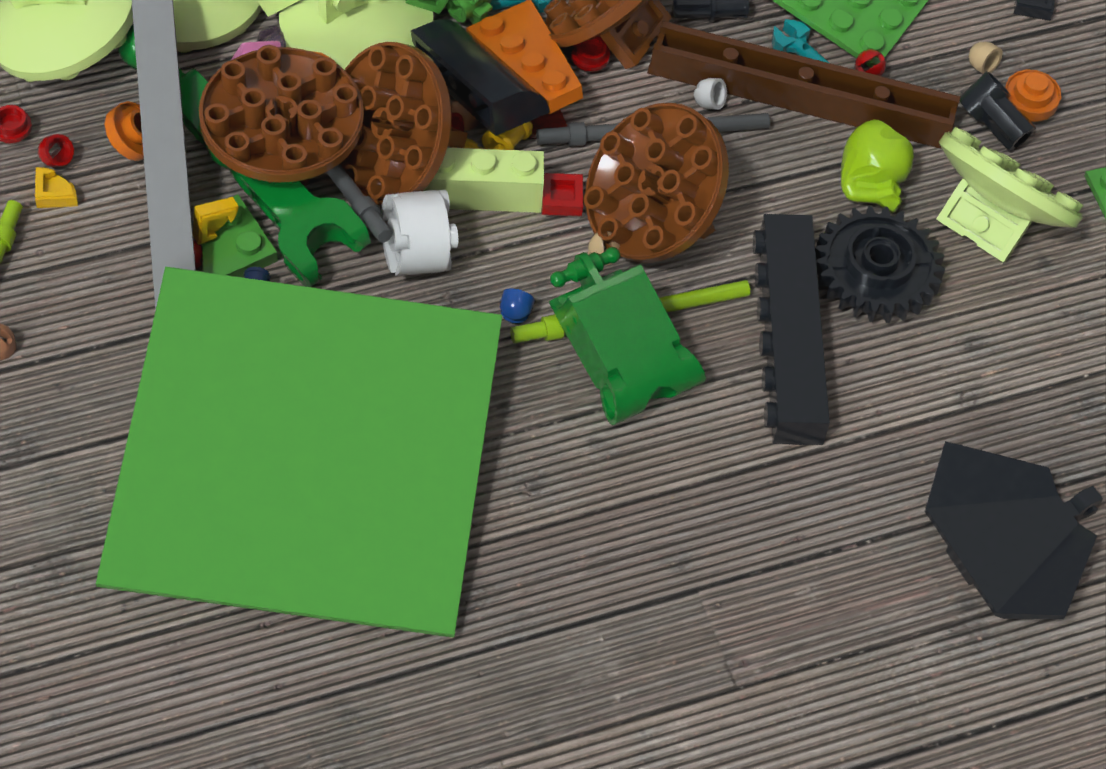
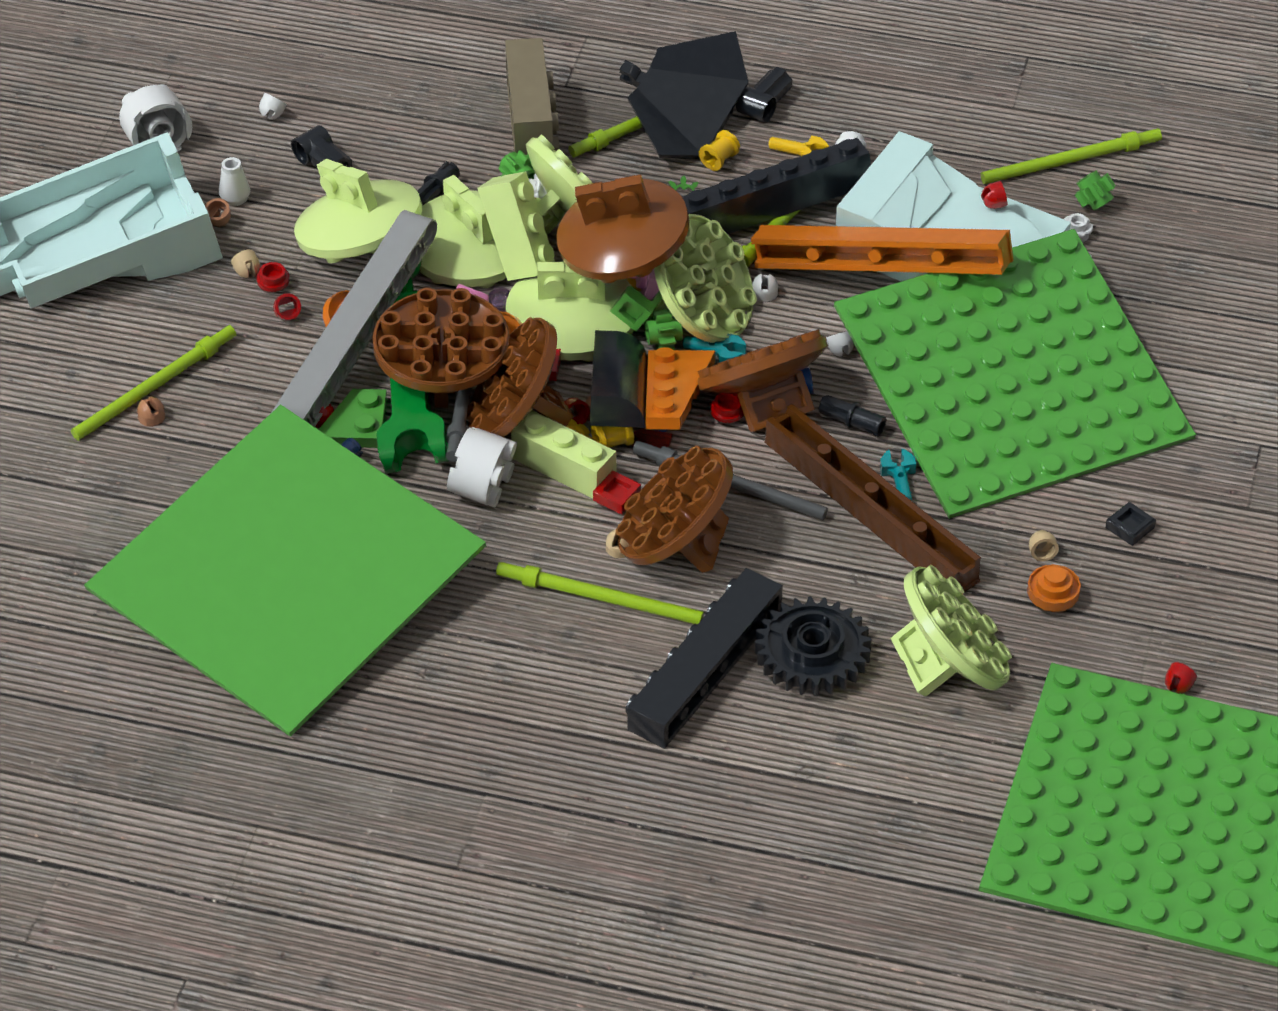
camera: 40 degrees right, 10 degrees down
(53, 190) = (266, 333): yellow tile -> none
(211, 217) = (347, 392): yellow tile -> none
(516, 305) = (517, 550): blue hinge -> none
(622, 335) = (566, 599): green piece -> none
(711, 93) = (800, 472): white hinge -> none
(868, 55) = (941, 515): red hinge -> none
(875, 164) = (871, 578): lime piece -> none
(990, 103) = (1008, 577): black piece -> none
(1011, 531) = (746, 863): black panel -> none

